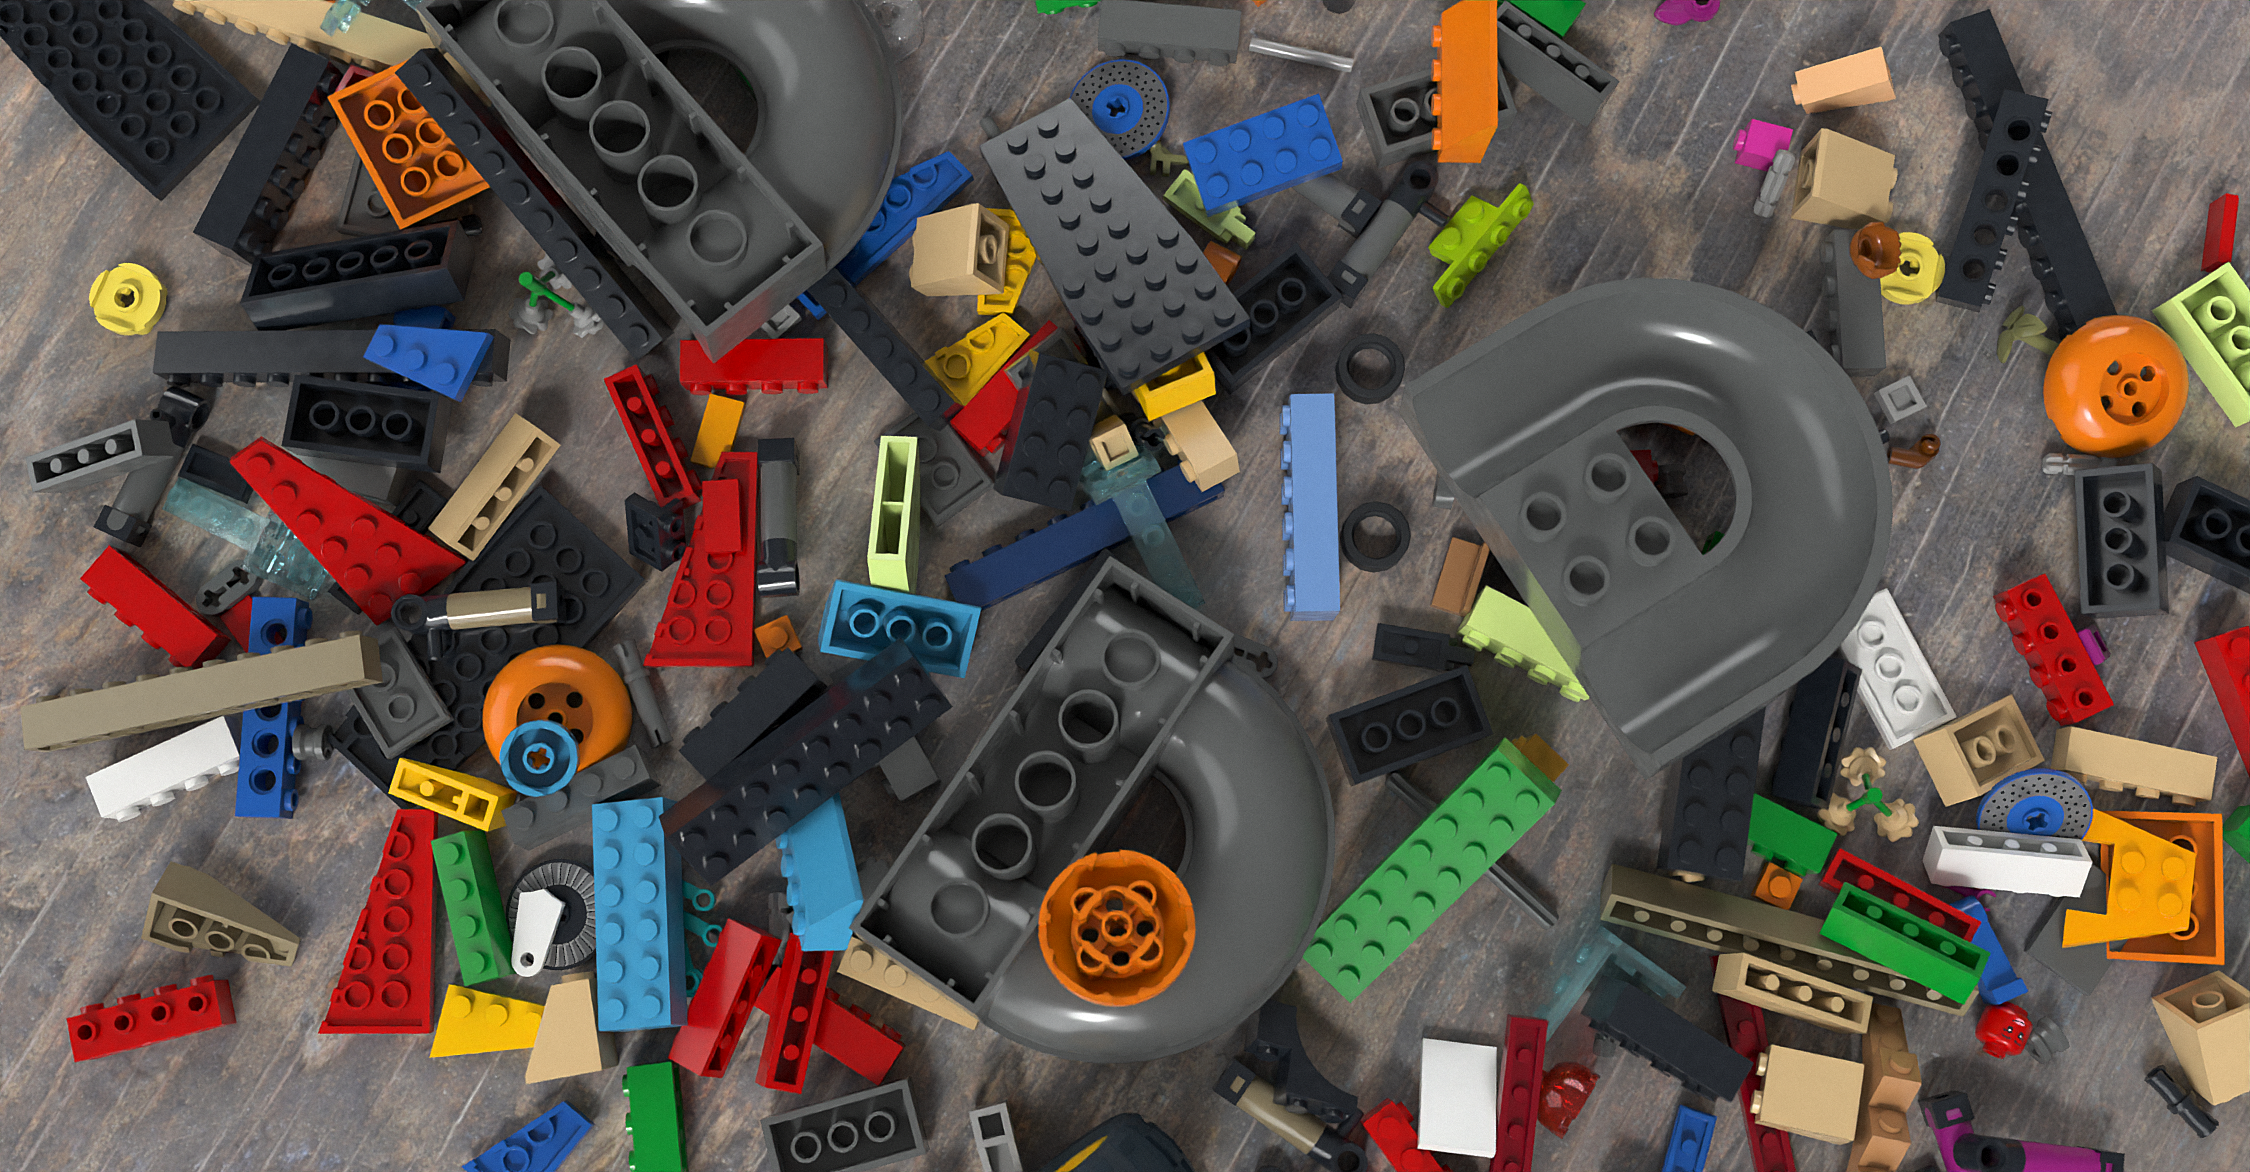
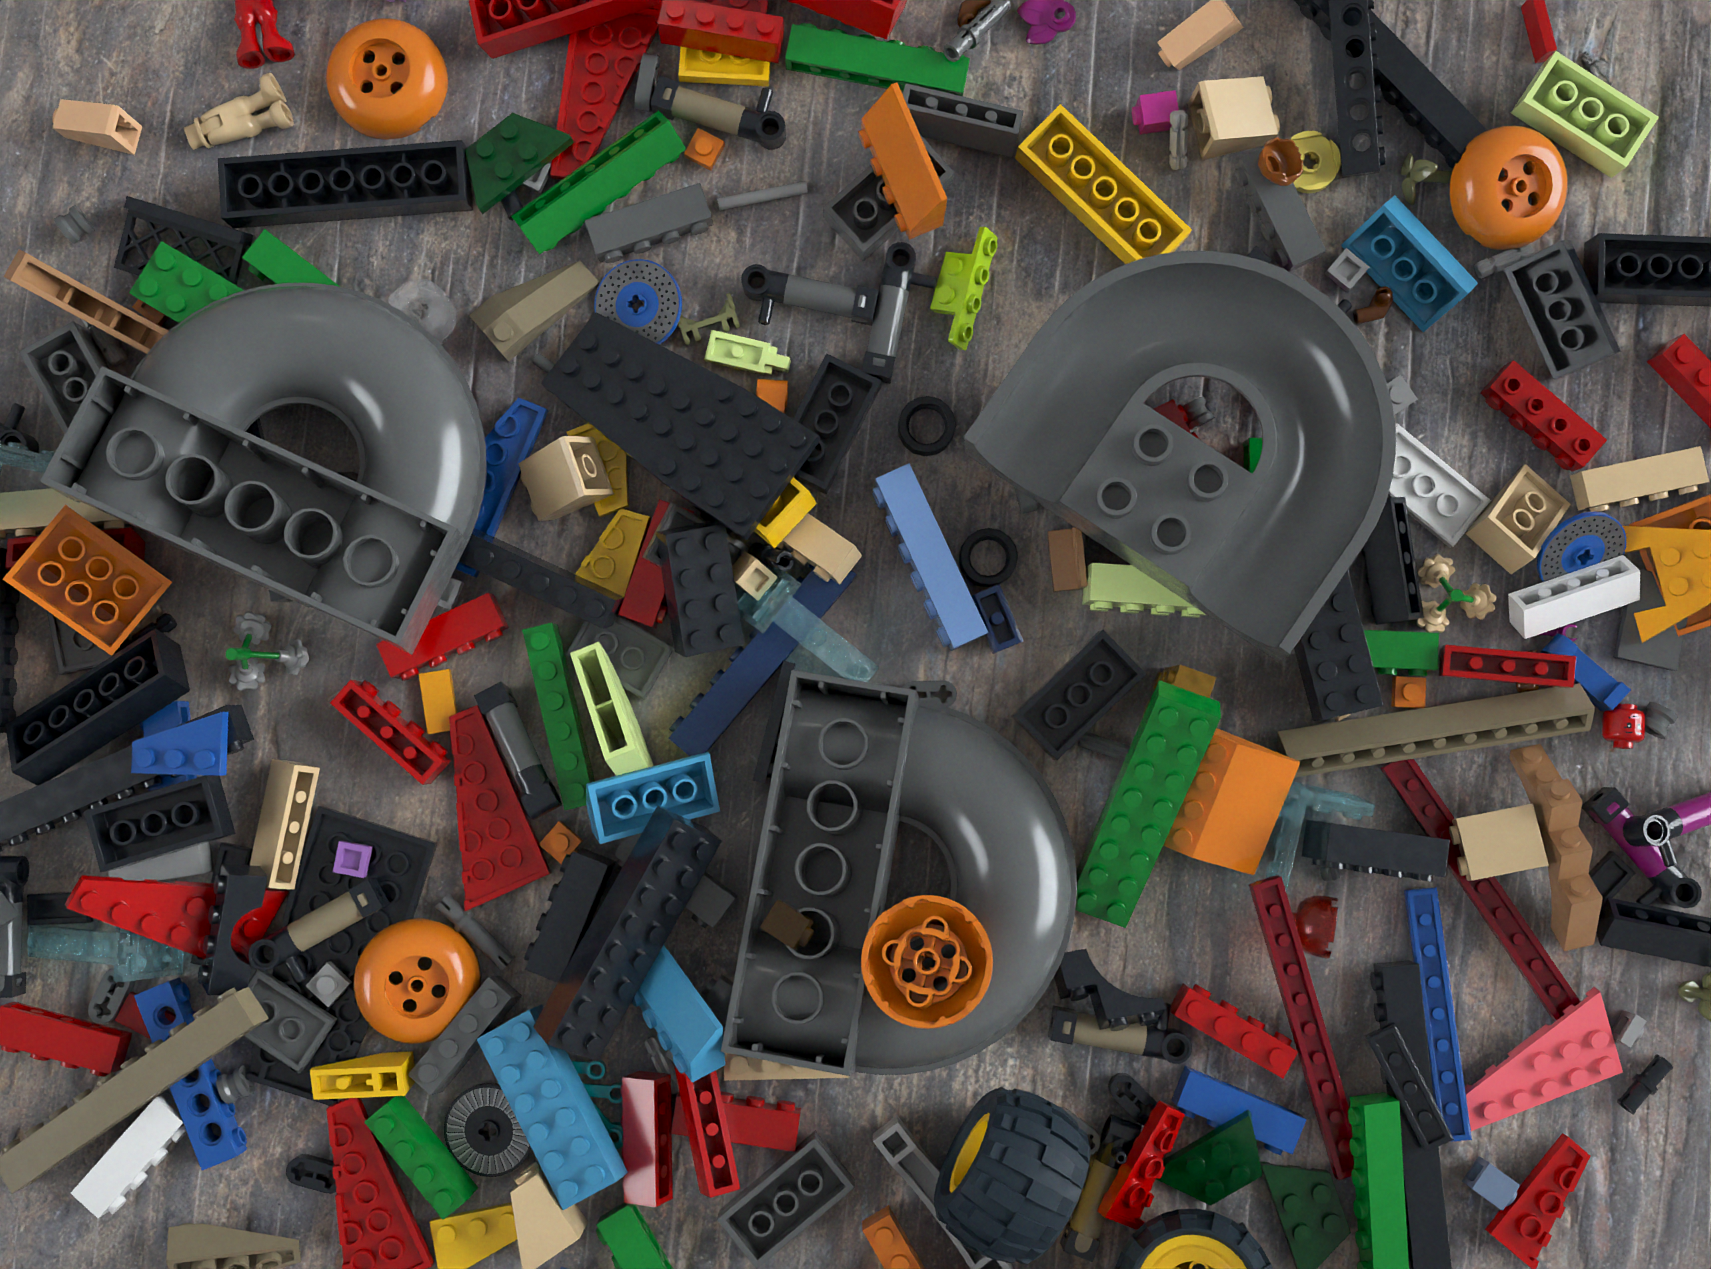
camera: 25 degrees left, 5 degrees up
(343, 882) = (310, 1180): none -> black beam
(414, 533) = (238, 892): none -> black arch
(462, 677) = (329, 984): none -> light grey plate
(519, 766) = (419, 1043): dark azure brick -> none
(534, 201) = (207, 587): black brick -> none
(535, 930) = (476, 1151): white piece -> none
(550, 555) = (352, 859): none -> medium lavender plate
(654, 531) = (426, 805): black bracket -> none
(722, 516) = (473, 768): red tile -> none
(840, 498) = (559, 713): none -> green brick
(983, 821) = (788, 925): none -> dark brown brick
(1000, 67) = (527, 310): none -> dark tan wedge
(1263, 155) = (769, 294): blue brick -> none
(1357, 605) = (997, 619): none -> dark blue brick
(1419, 648) = (1059, 630): black hinge -> none
(1457, 1098) = (1237, 962): white tile -> none
(1527, 916) = (1232, 803): none -> orange slope
(1665, 194) = (1100, 189): none -> yellow brick
(1792, 993) = (1455, 771): tan brick -> none
(1901, 559) = (1400, 394): none -> light grey plate
(1905, 943) = (1525, 697): green brick -> none
(1975, 422) = (1411, 263): none -> dark azure slope
(2094, 644) = (1572, 398): magenta tile -> none

